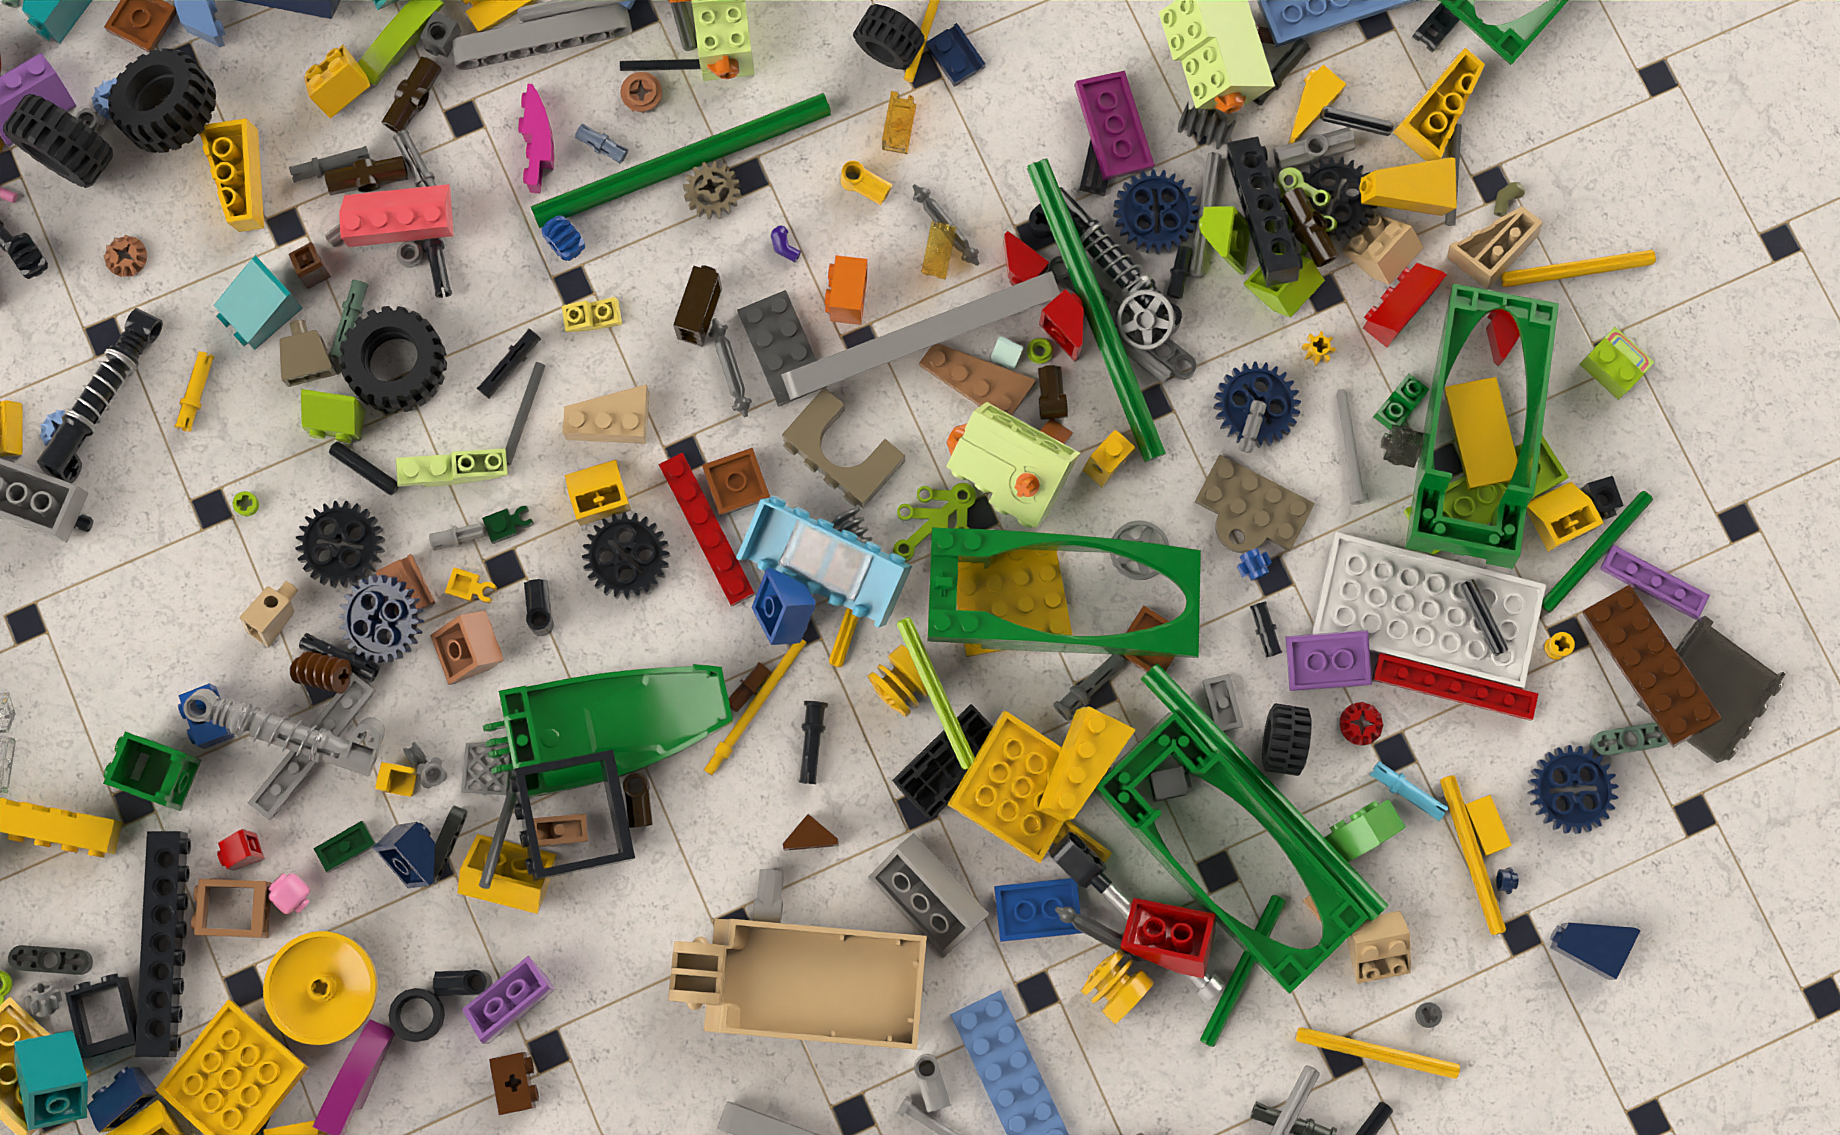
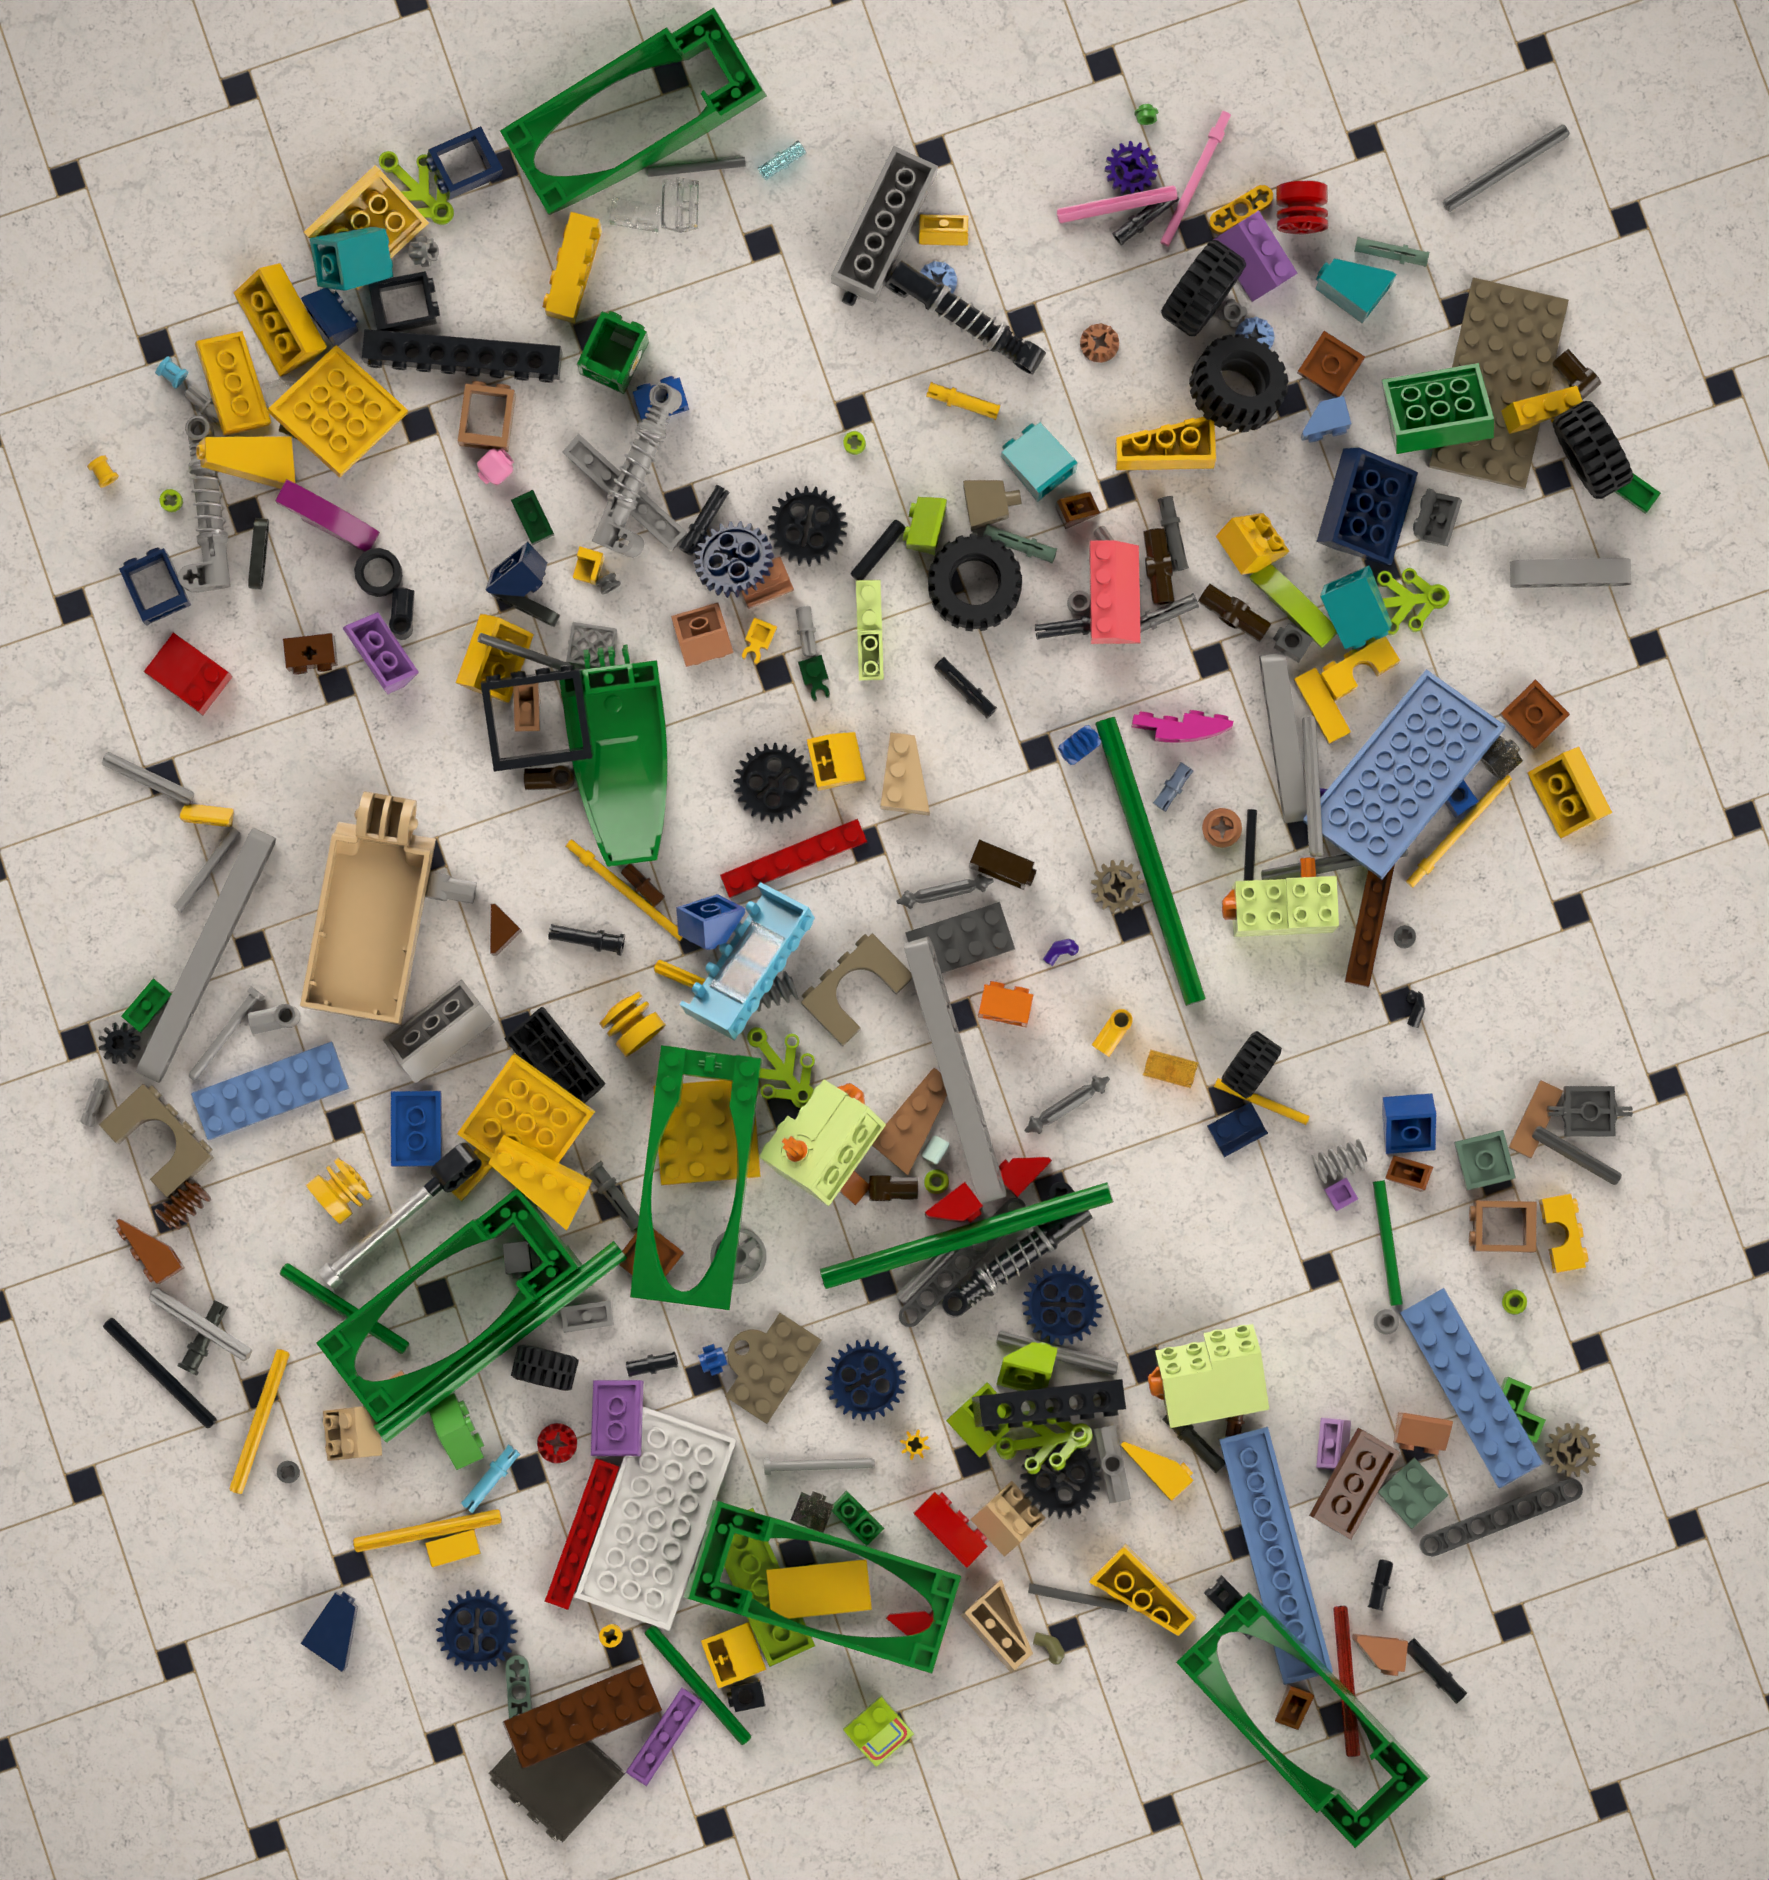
camera: 100 degrees right, 5 degrees up
(26, 255) = (1102, 254): black gear -> none
(32, 951) = (467, 241): pearl dark grey beam -> none
(240, 850) = (536, 425): red slope -> none
(269, 613) = (739, 455): tan torso -> none
(320, 988) = (409, 490): yellow dish -> none
(321, 672) = (689, 504): reddish brown piece -> none
(431, 780) = (586, 600): light grey plate -> none
(524, 410) = (919, 698): dark grey bar -> none
(538, 605) = (737, 700): black piece -> none
(591, 316) = (1006, 767): light yellow slope -> none
(736, 481) = (834, 888): dark orange plate -> none
(936, 692) = (614, 1050): lime axle -> none
(939, 249) = (1039, 1095): clear yellow hinge -> none
(1092, 189) = (1133, 1261): black tile -> none
(1094, 929) = (387, 1183): dark grey wheel -> none
(1109, 457) = (826, 1236): yellow torso -> none
(1114, 125) = (1151, 1274): magenta plate -> none
(1146, 319) = (952, 1281): light grey wheel -> none
(1170, 936) = (377, 1241): red slope -> none
(1179, 272) = (1001, 1321): black axle -> none
(1206, 126) = (1142, 1361): dark grey piece -> none
(1252, 426) = (840, 1370): light grey axle -> none
(1309, 227) = (1028, 1445): dark brown piece -> none
(1356, 121) = (1135, 1507): black axle -> none
(1414, 187) = (1063, 1555): yellow slope -> none
(1484, 617) = (642, 1566): black axle -> none
(1507, 880) = (400, 1558): dark blue plate -> none
(1578, 268) = (974, 1706): yellow axle -> none

